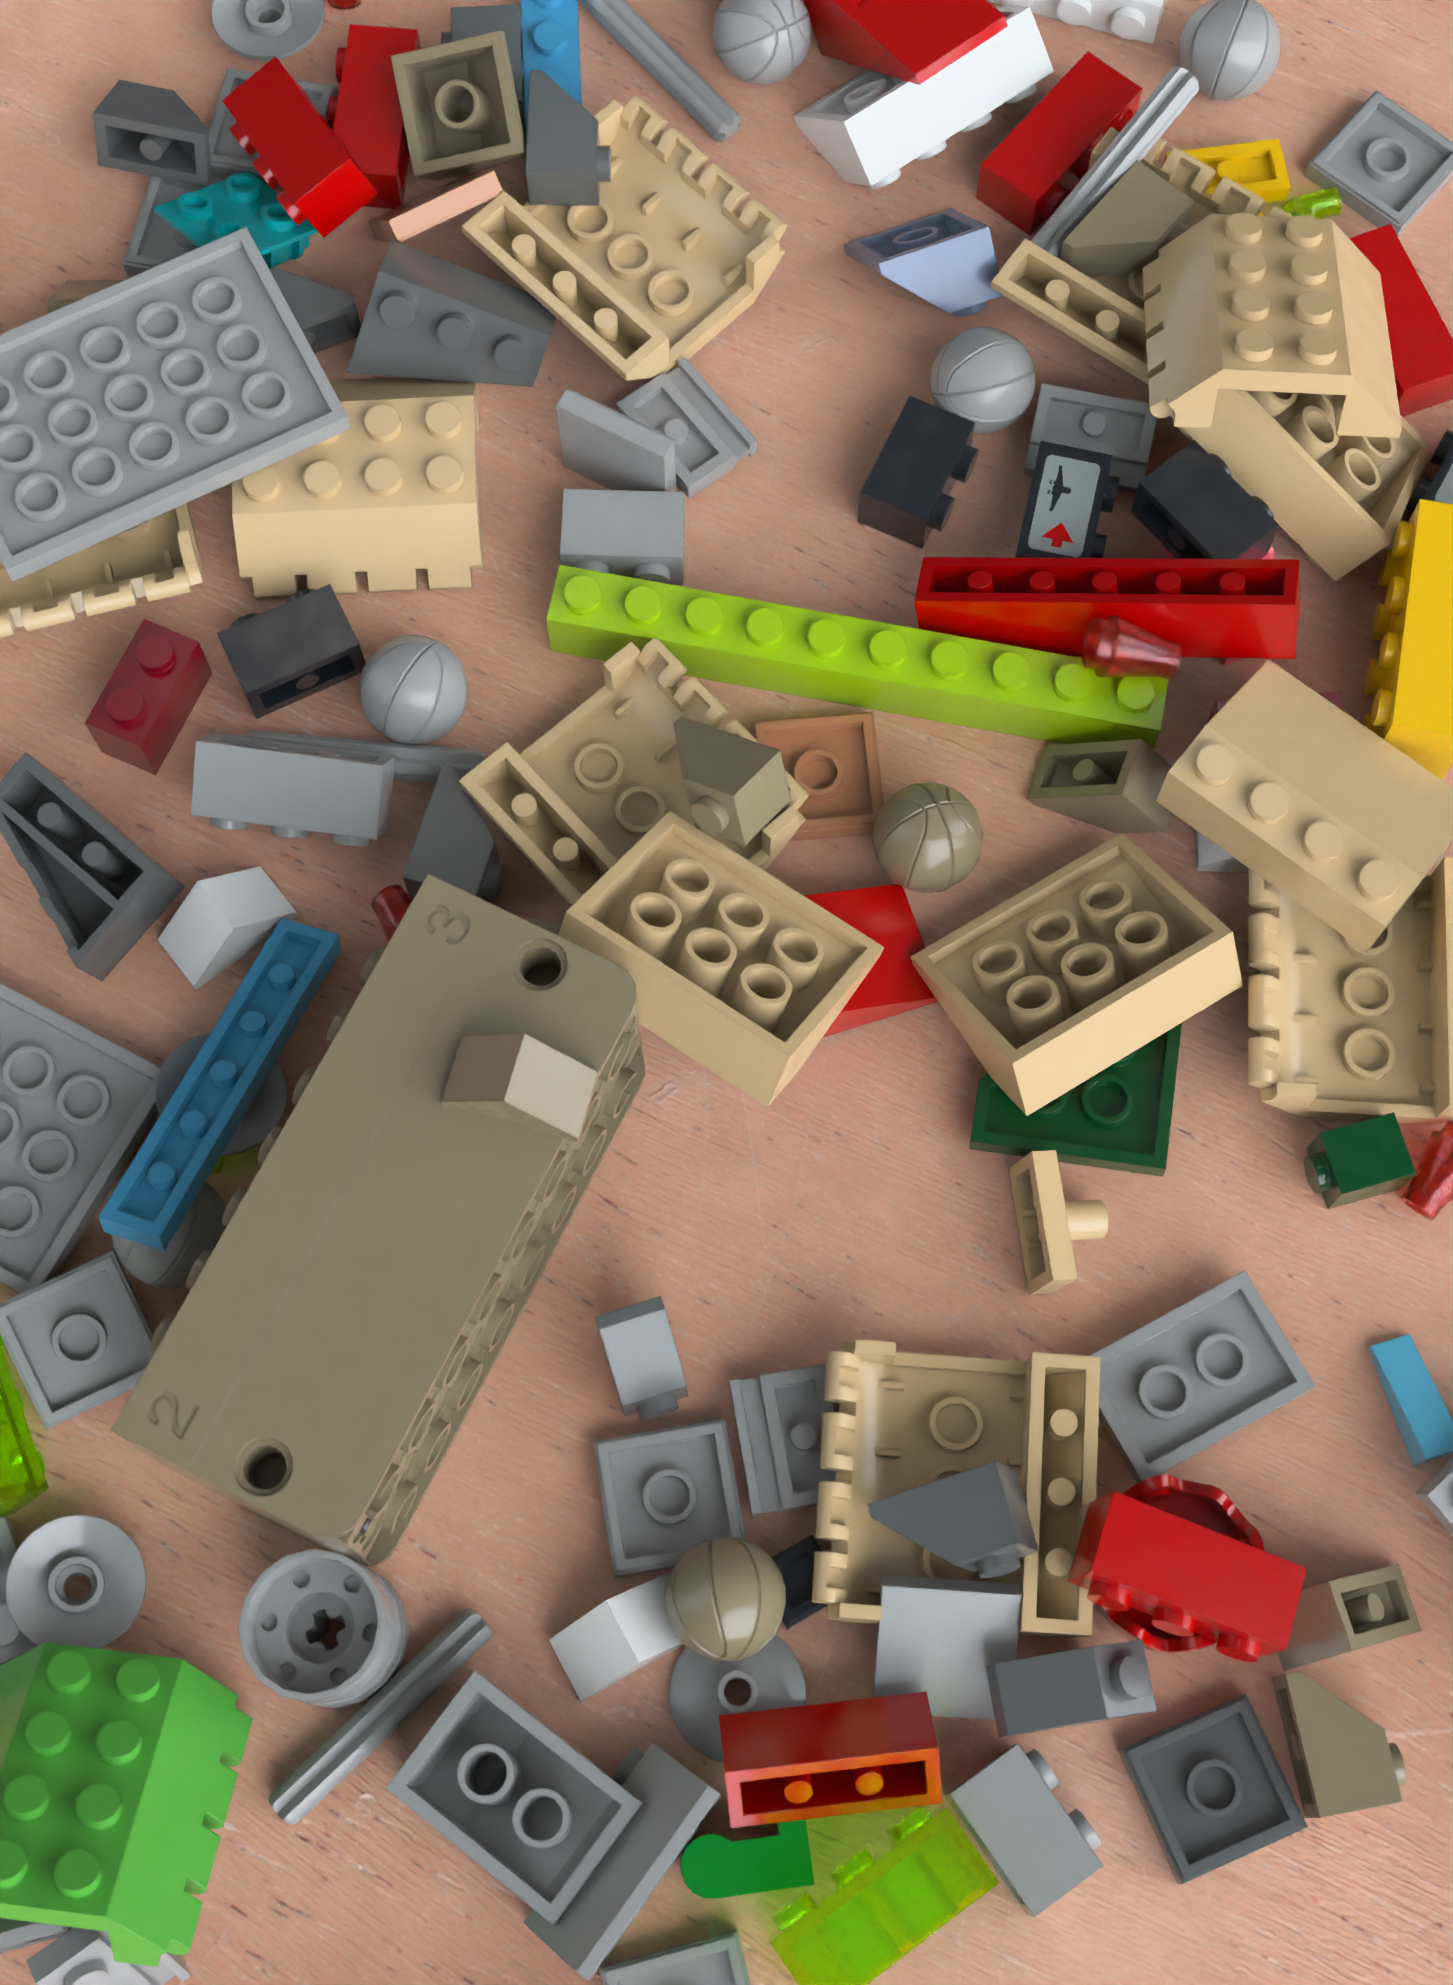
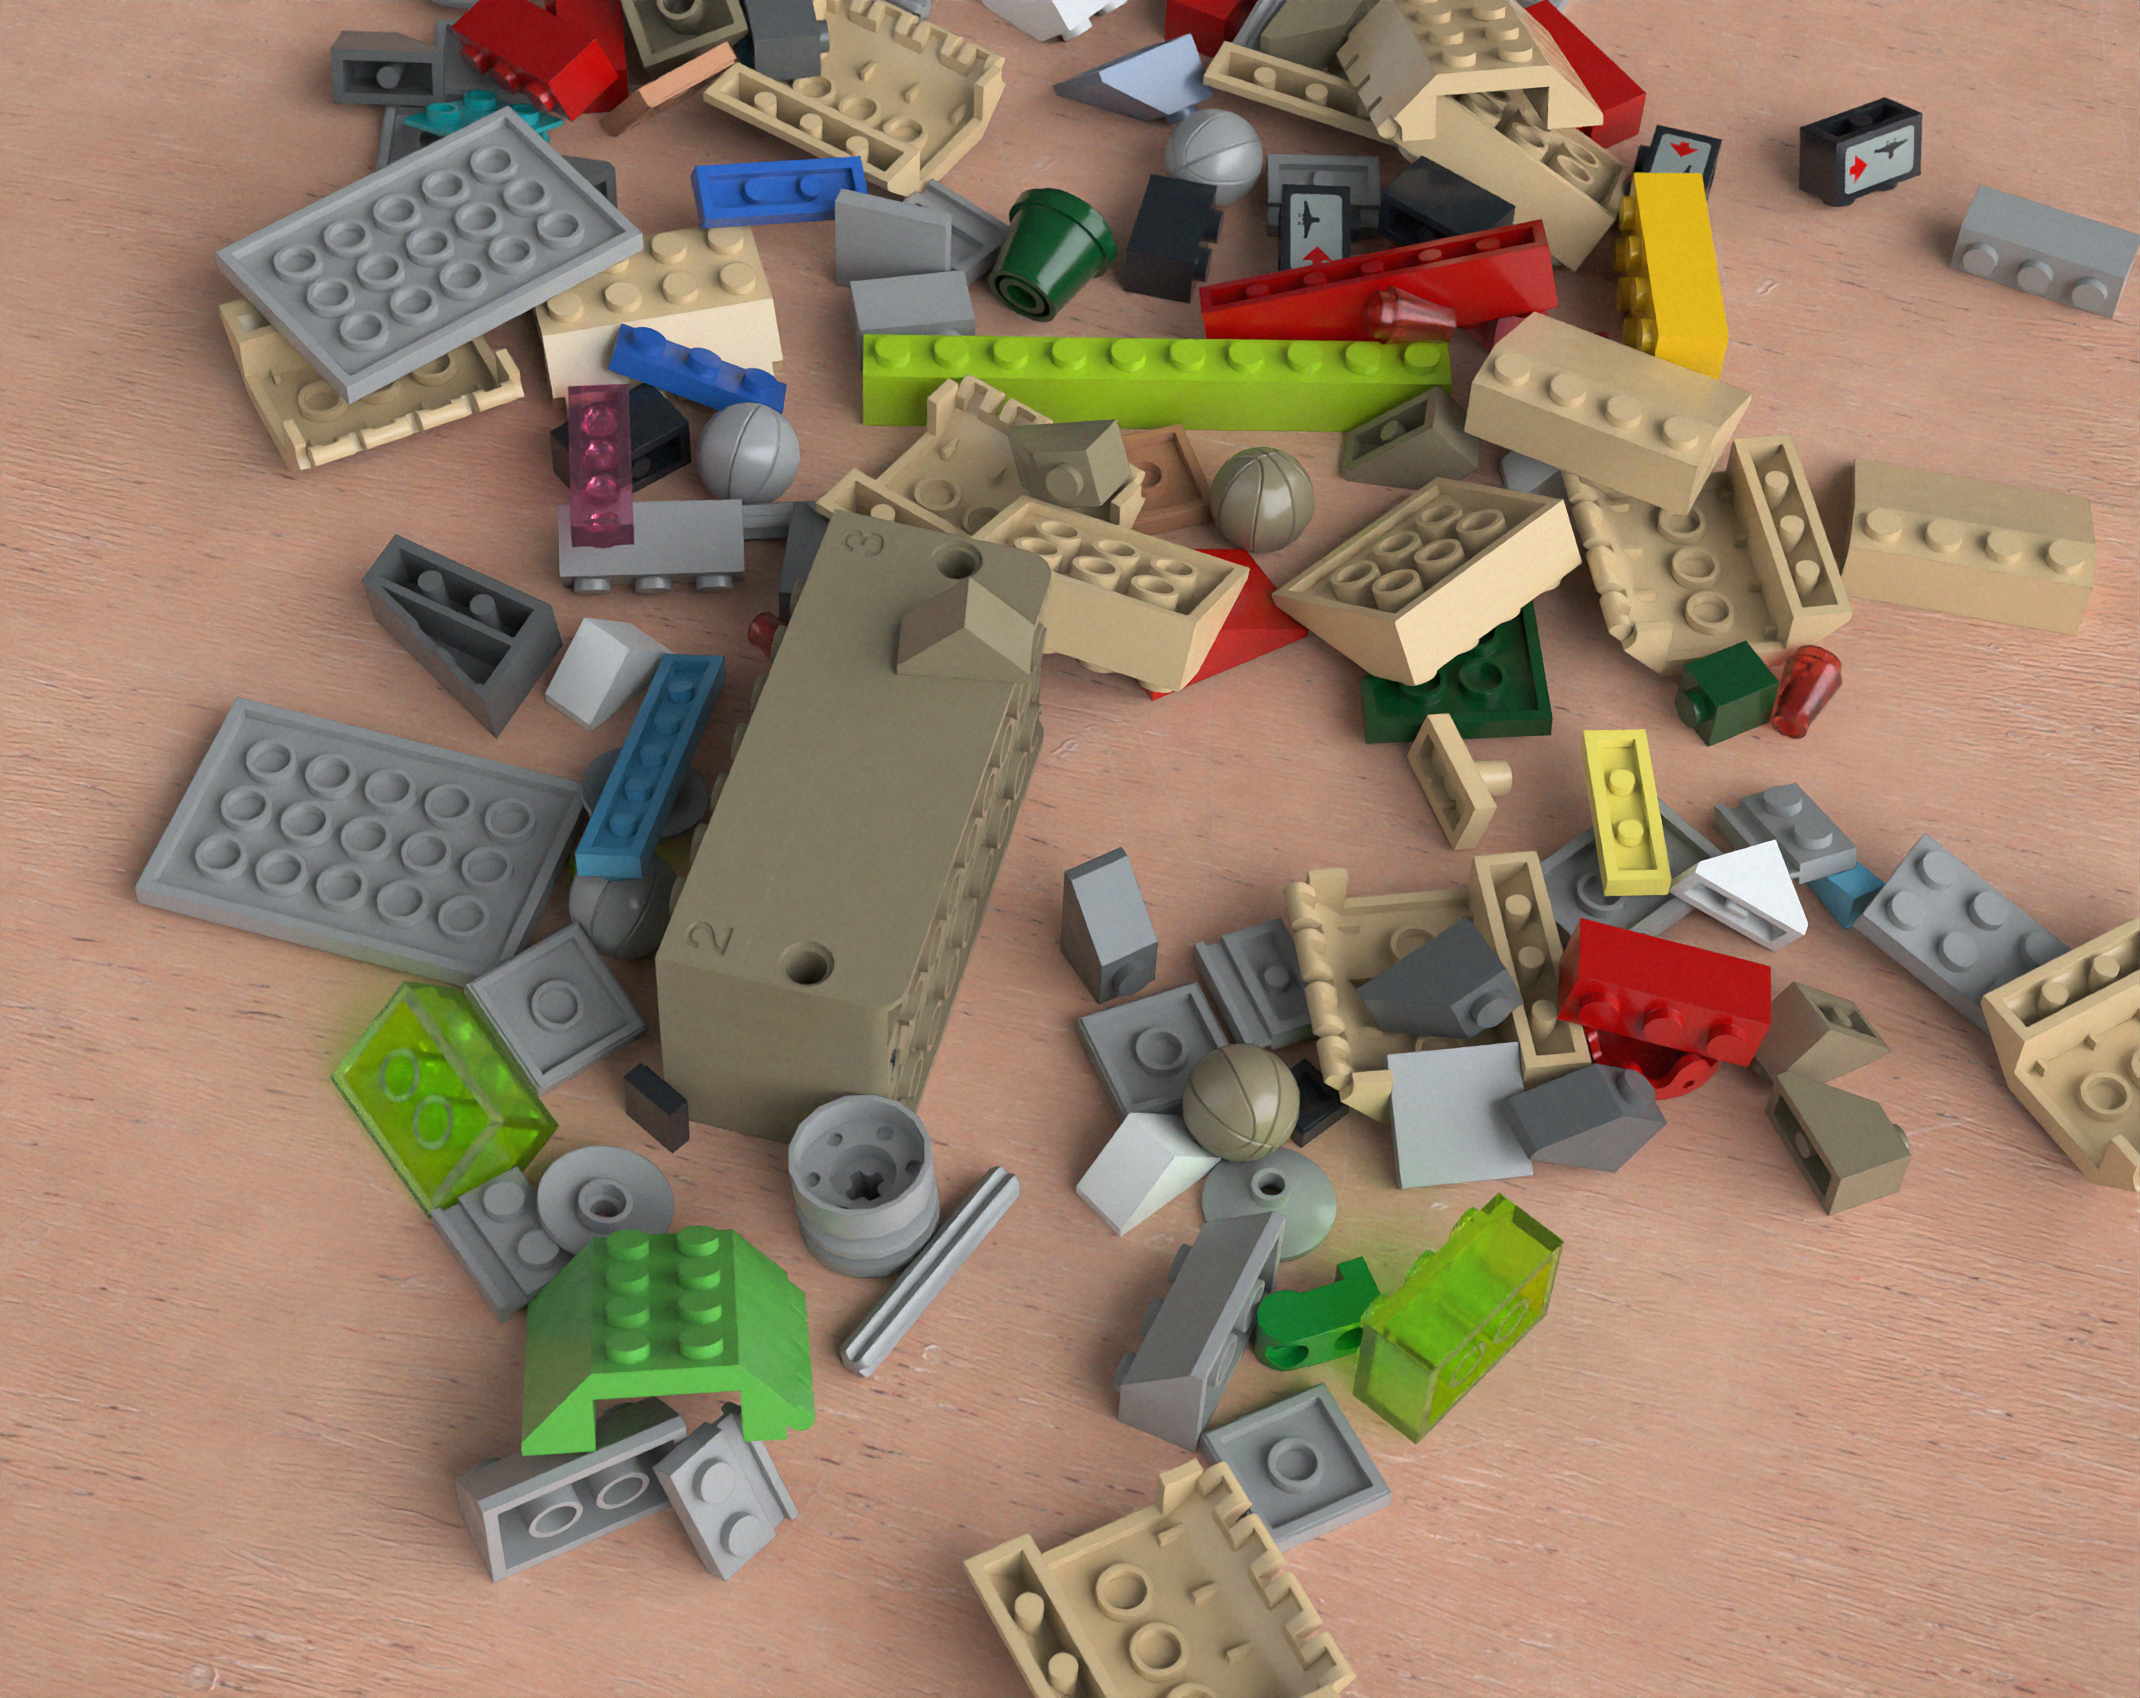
camera: 15 degrees left, 20 degrees down
(149, 697) = (492, 498): dark red brick -> none
(153, 1480) = (657, 1107): none -> black tile
(243, 707) = (600, 466): none -> clear pink plate
(383, 582) = (691, 372): none -> blue plate
(449, 324) = (666, 151): dark grey wedge -> none
(504, 374) = (773, 191): none -> blue plate
(514, 1797) = (1079, 1282): light grey slope -> none
(780, 481) = (1050, 253): none -> dark green piece
(830, 1759) = (1375, 1209): red brick -> none
(1026, 1829) = (1600, 1257): light grey brick -> none
(1210, 1311) = (1625, 813): none -> light yellow plate
(1212, 1789) = (1735, 1201): dark grey tile -> none
(1315, 1424) = (1748, 893): none -> white slope
(1376, 1355) = (1803, 832): none -> light grey plate

